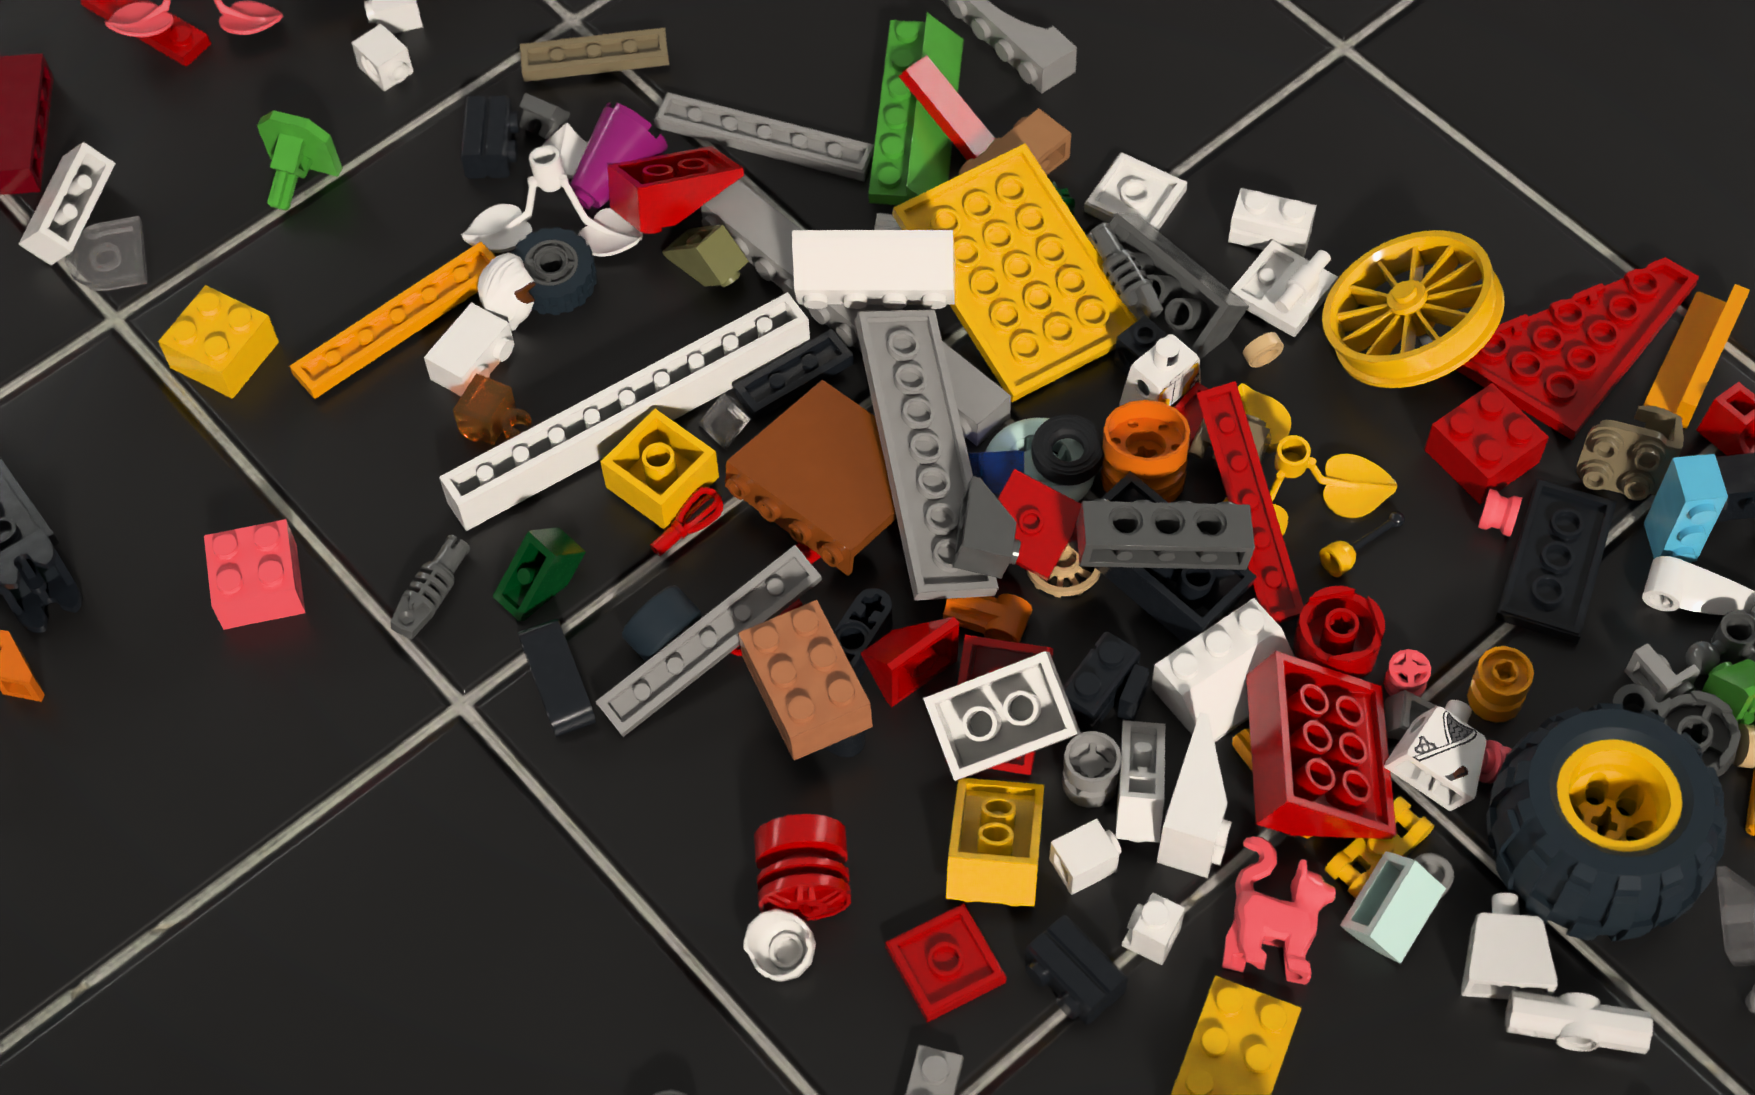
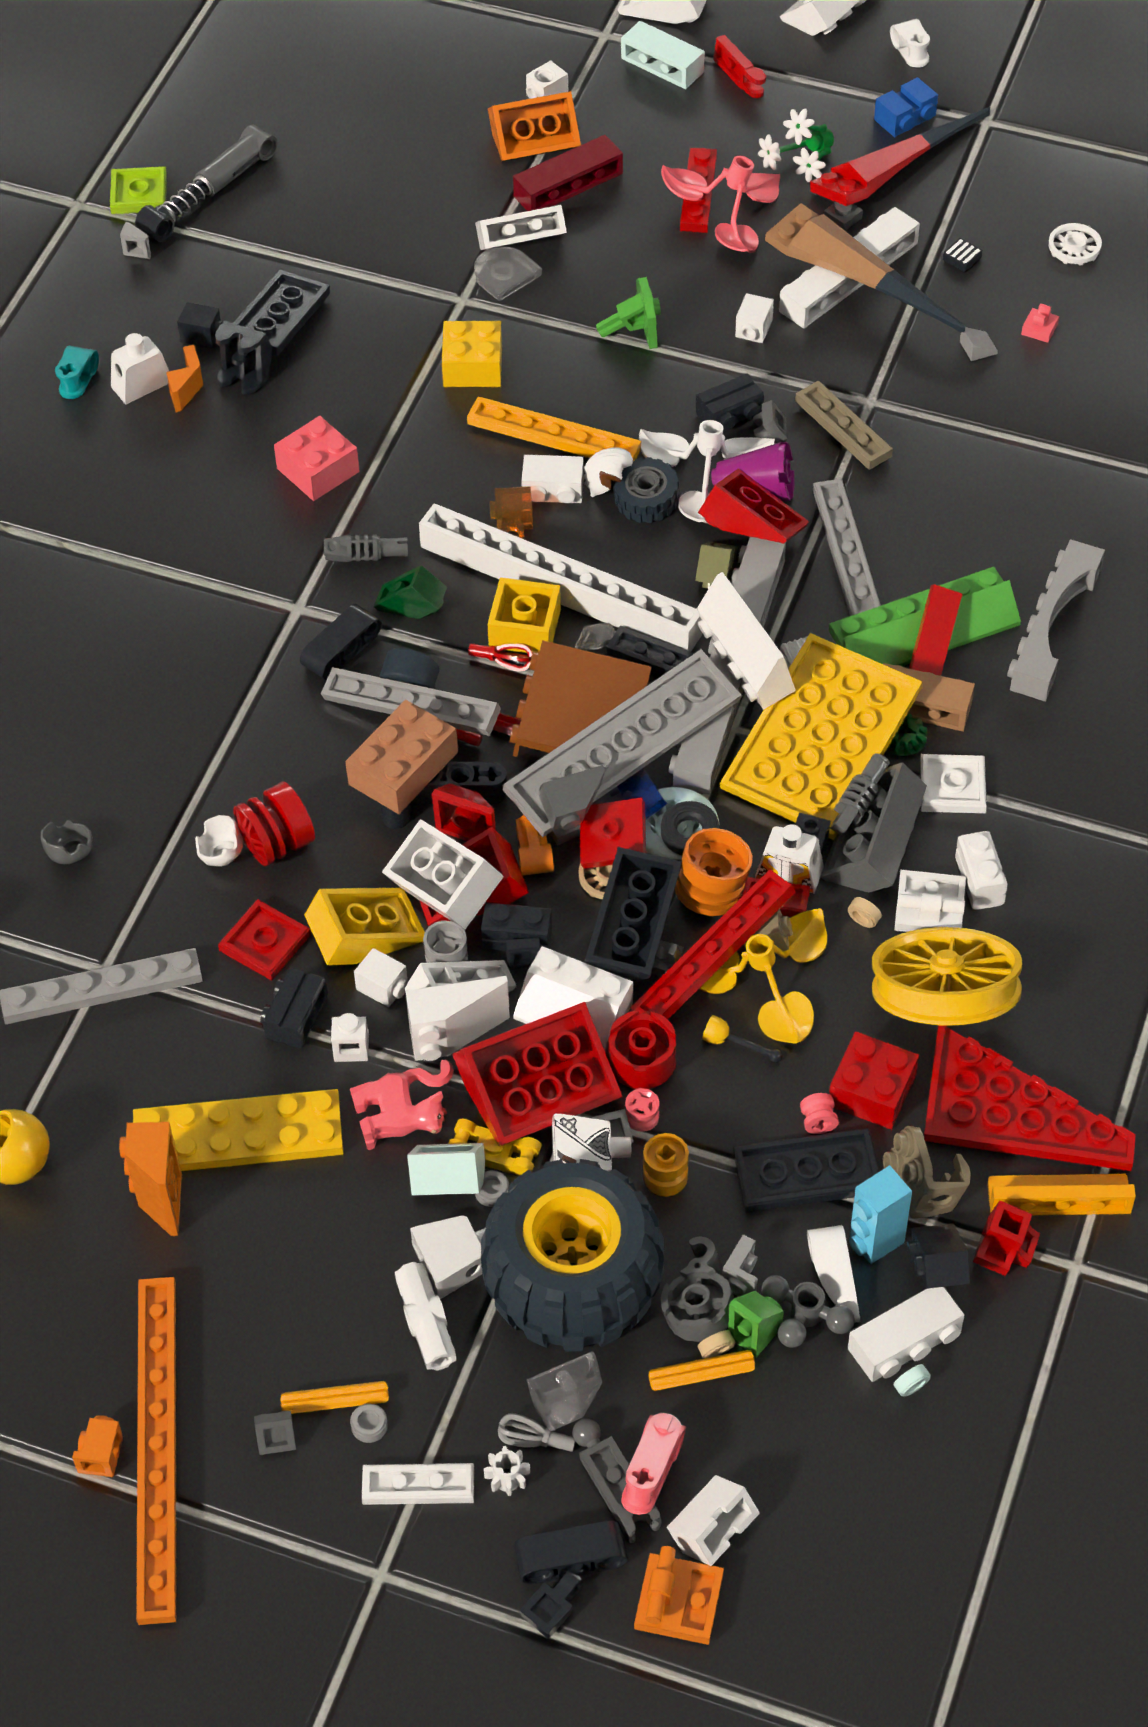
camera: 60 degrees right, 5 degrees down
(1146, 547) = (653, 940): dark grey brick -> none

